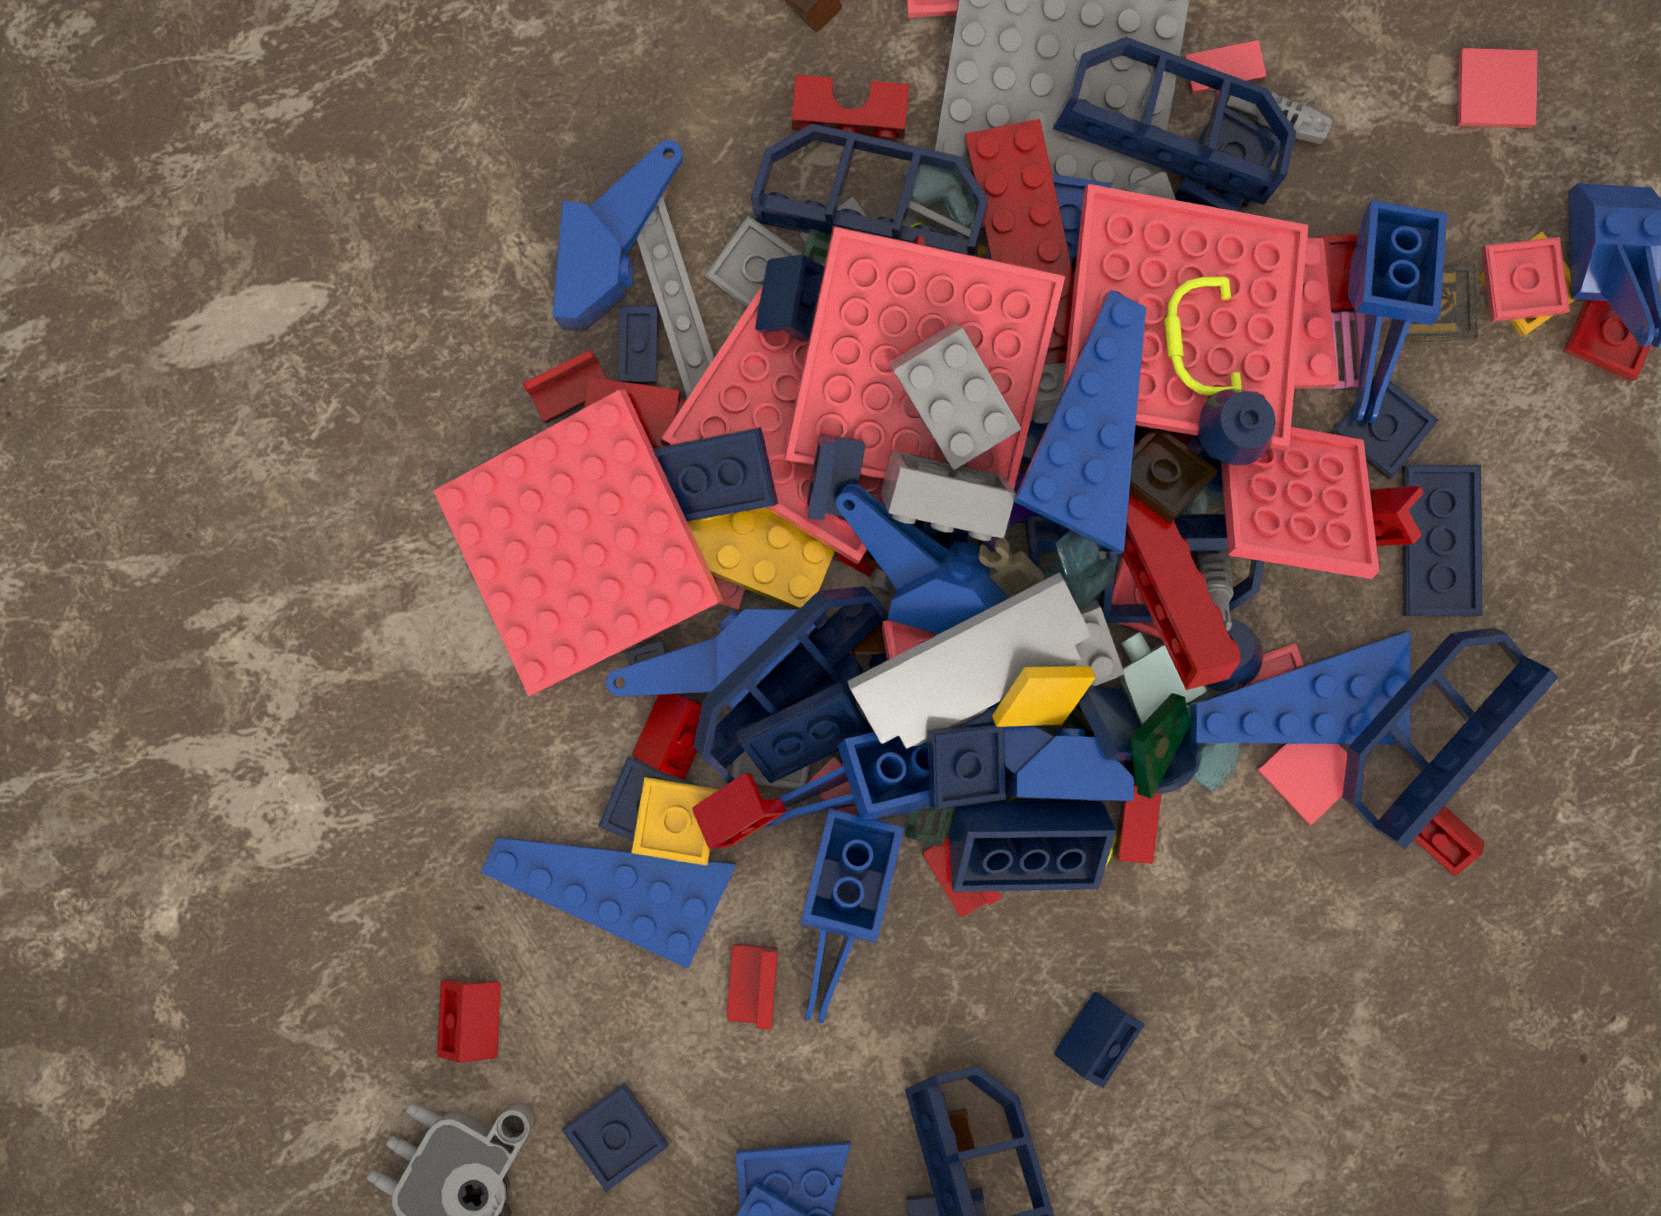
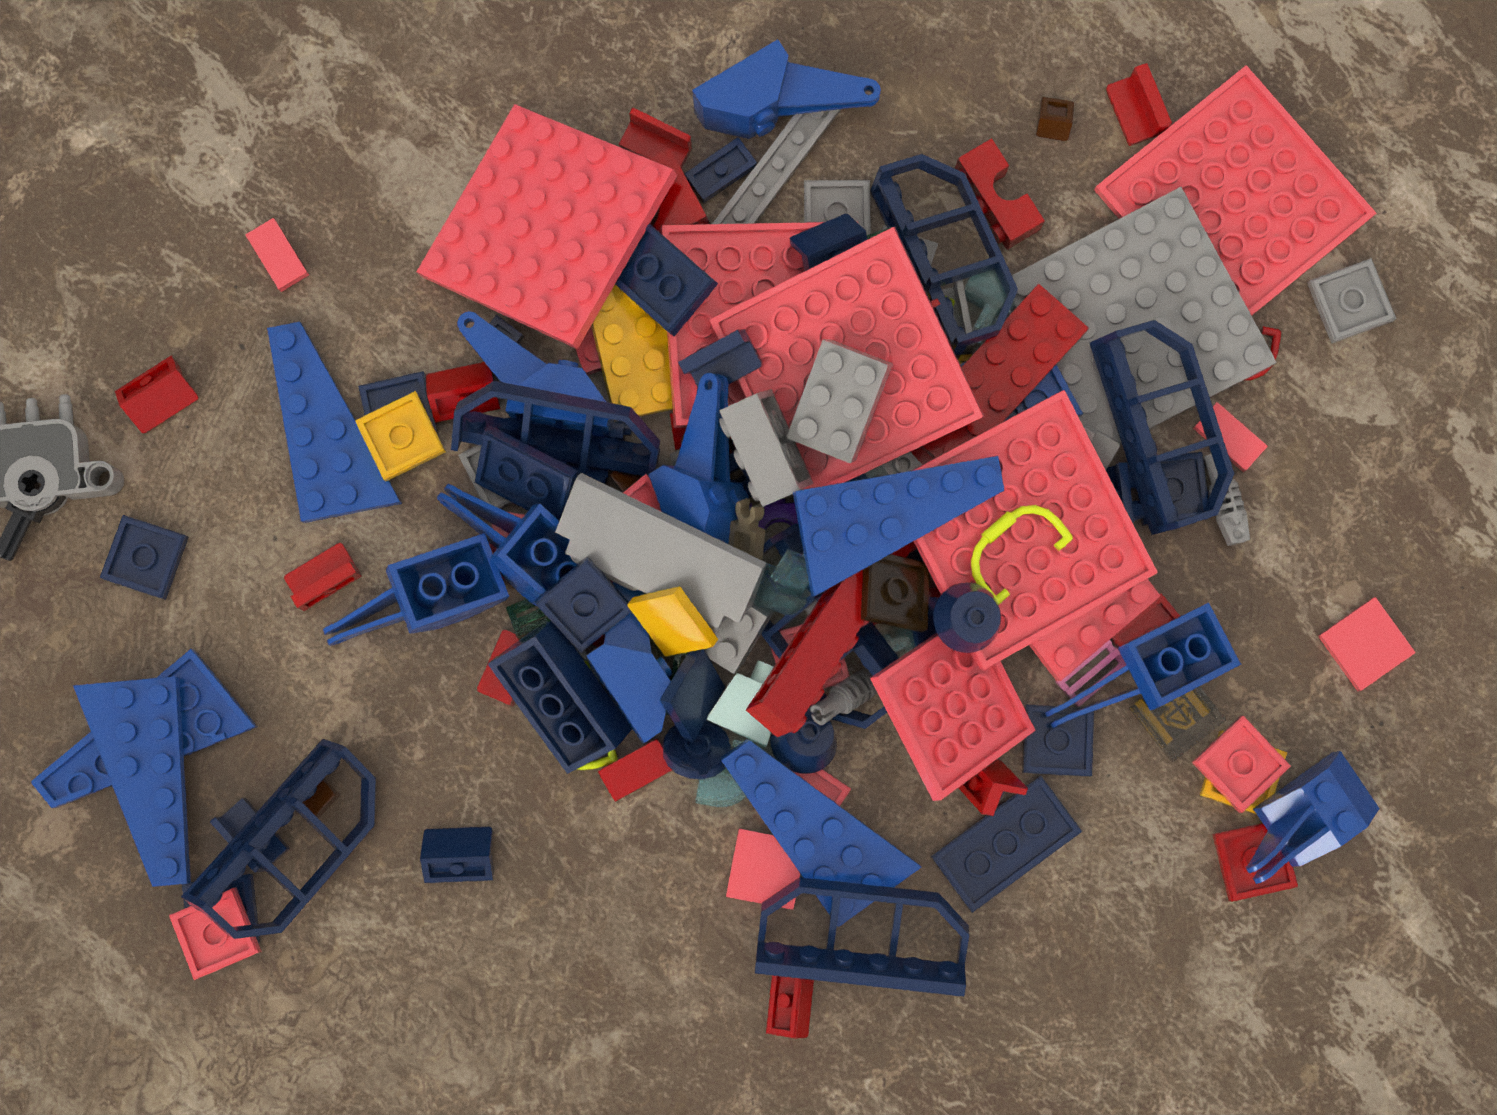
camera: 60 degrees right, 5 degrees down
(415, 814) = (277, 254): none -> coral tile
(735, 812) = (433, 470): red panel -> none
(1157, 742) = (701, 732): dark green wing -> none

